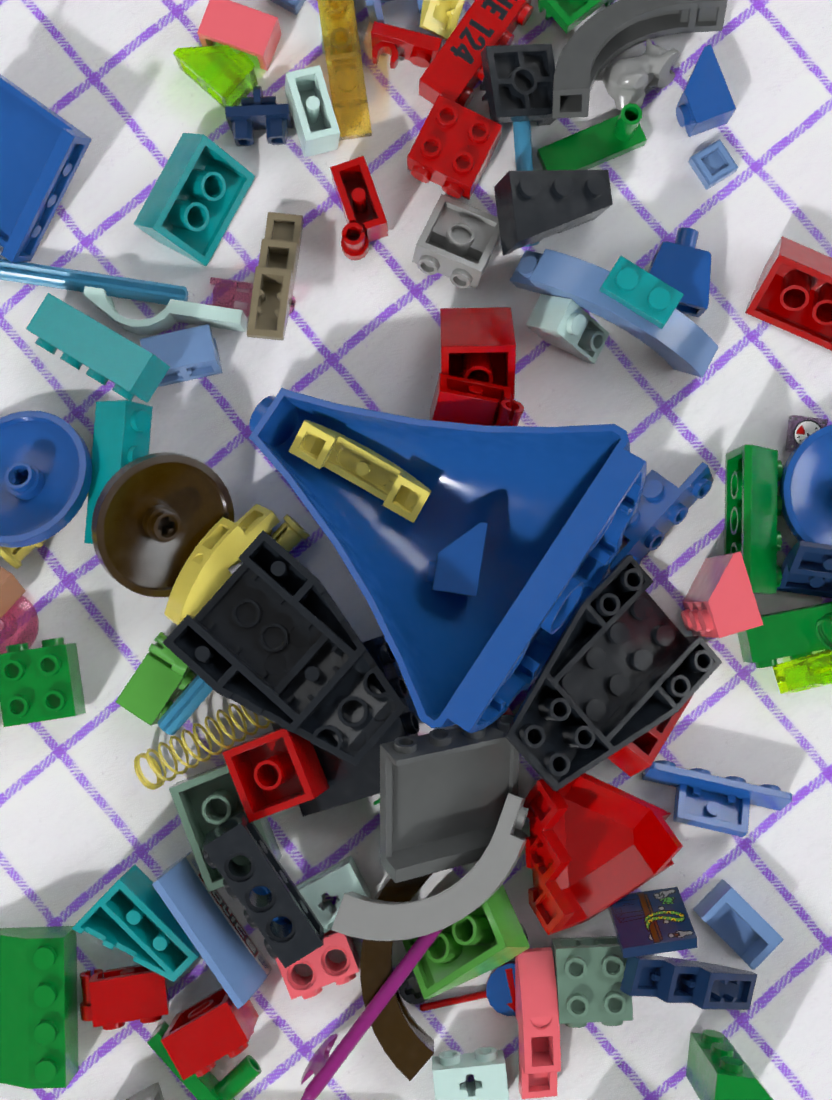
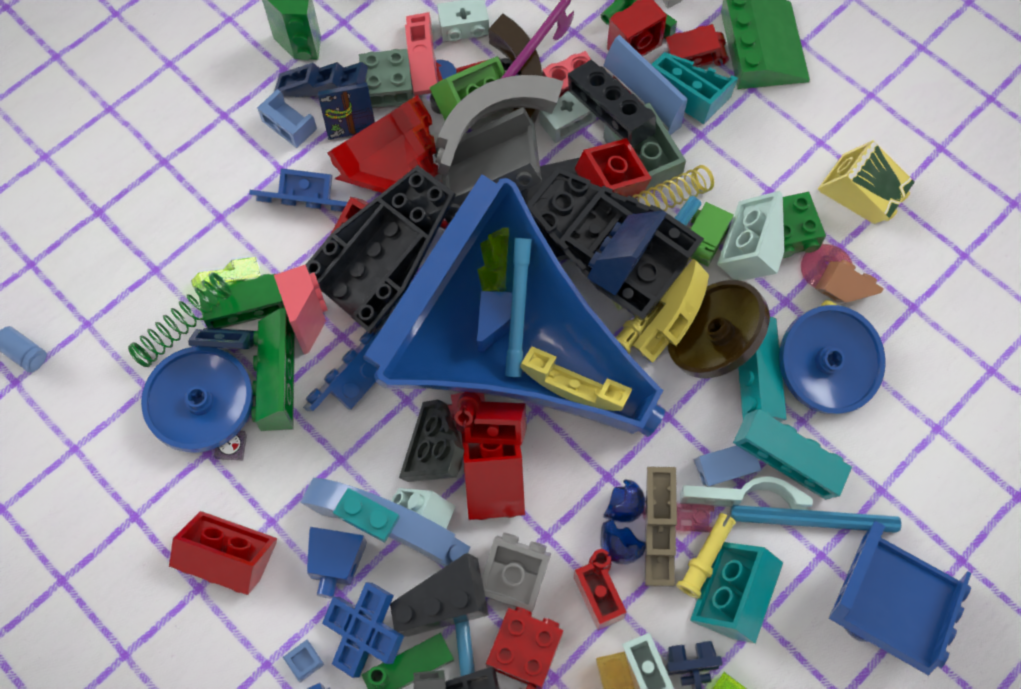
camera: 175 degrees right, 20 degrees down
(91, 662) = (755, 238): none -> light aqua slope
(233, 231) = (700, 567): none -> light yellow pin
(272, 621) = (623, 250): none -> dark blue slope
(316, 311) = (626, 503): none -> clear blue hair
(325, 263) = (621, 543): none -> clear blue hair
(420, 612) = (521, 261): none -> dark azure piece
(456, 623) = (494, 252): none -> clear neon green slope
(549, 384) = (434, 445): none -> pearl dark grey plate
(644, 182) = (363, 630): none -> blue plate

